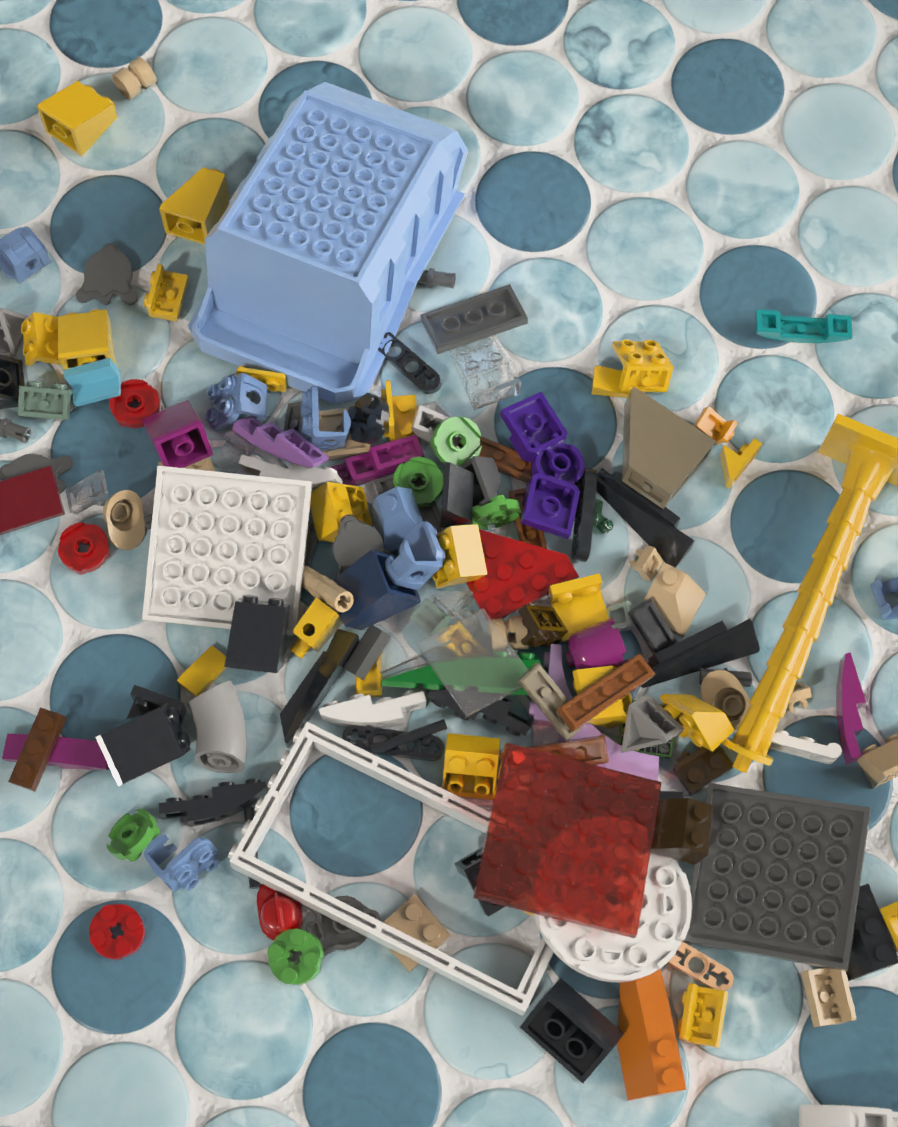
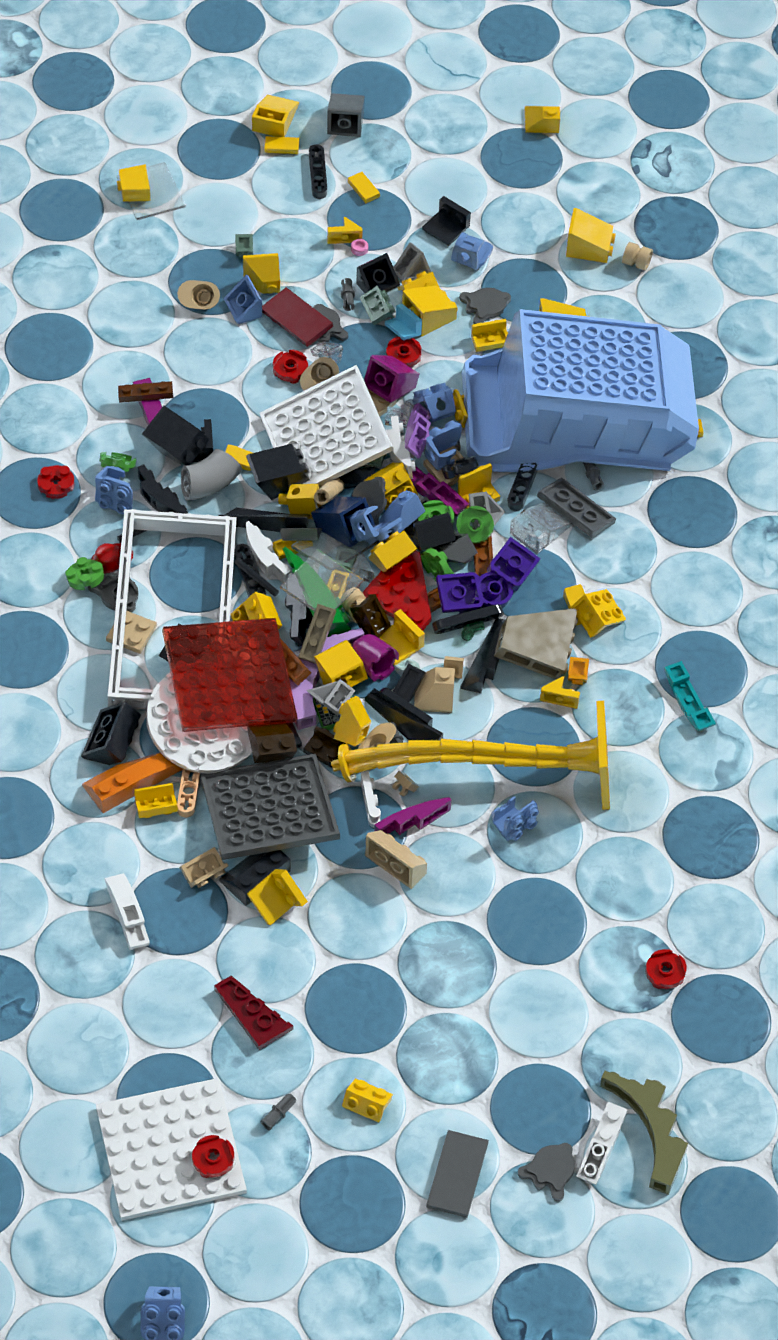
camera: 65 degrees right, 15 degrees down
(605, 692) = (340, 661): dark orange tile -> none

